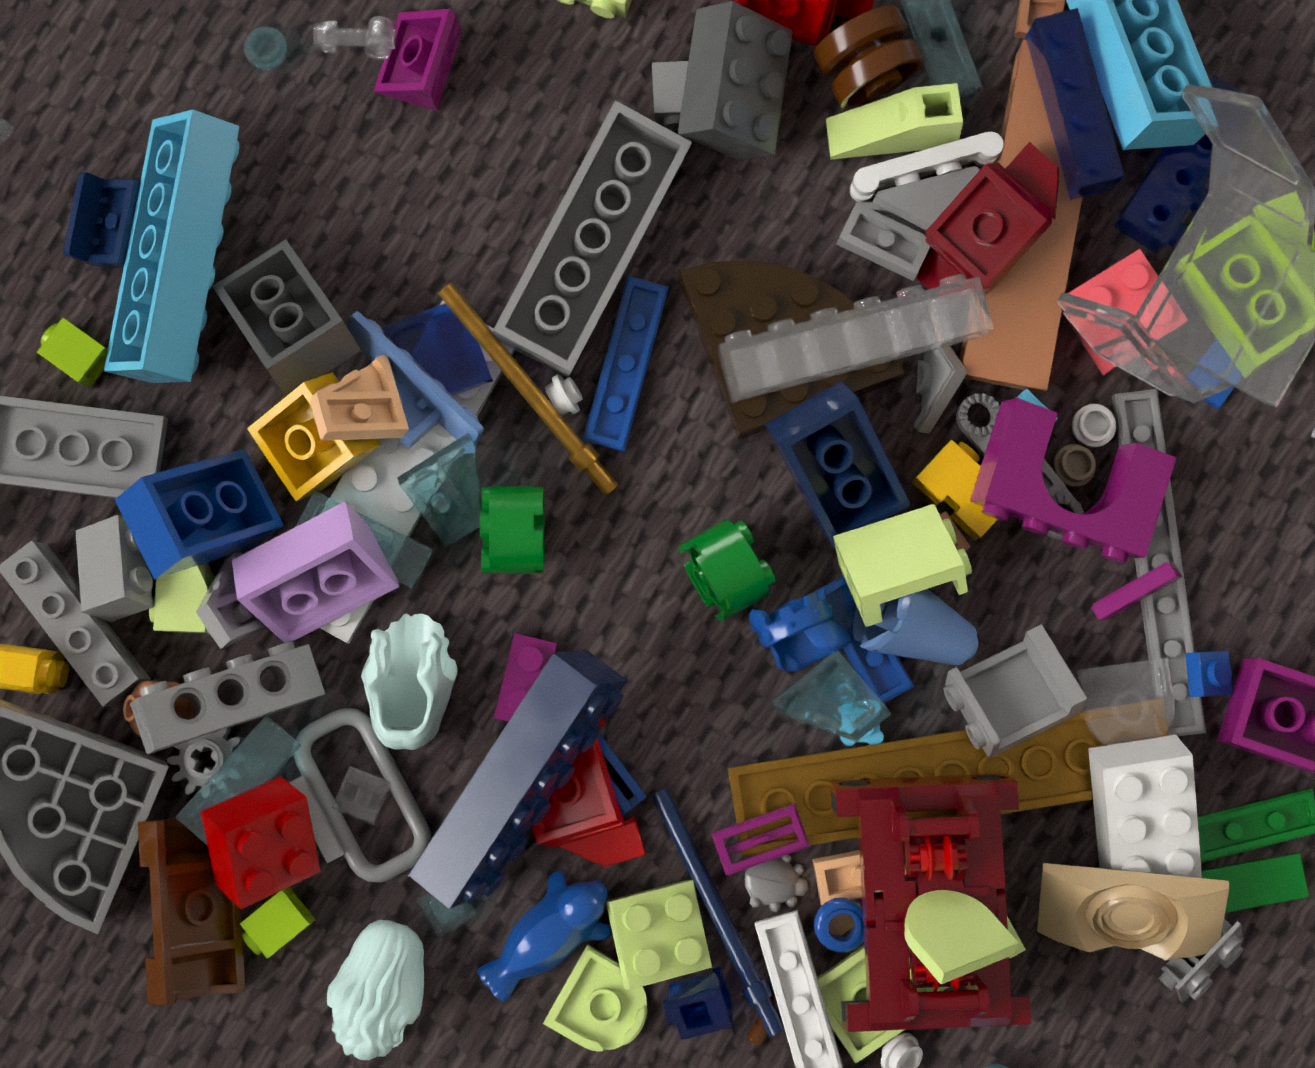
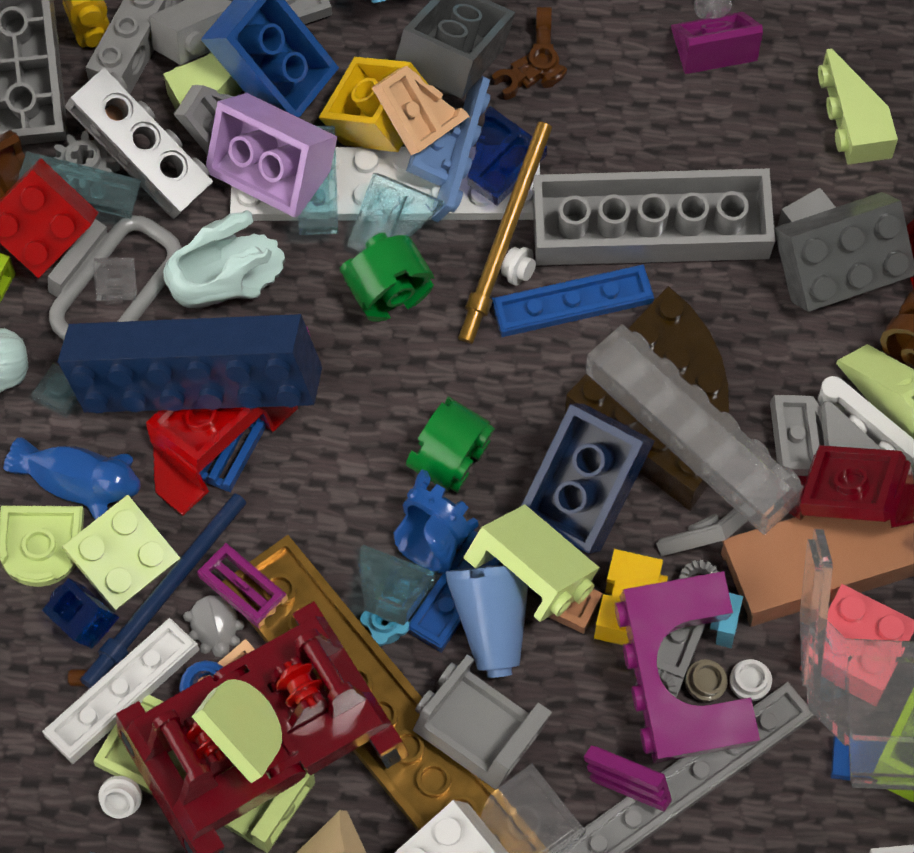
camera: 60 degrees right, 20 degrees down
(345, 244) = (539, 64): none -> reddish brown piece

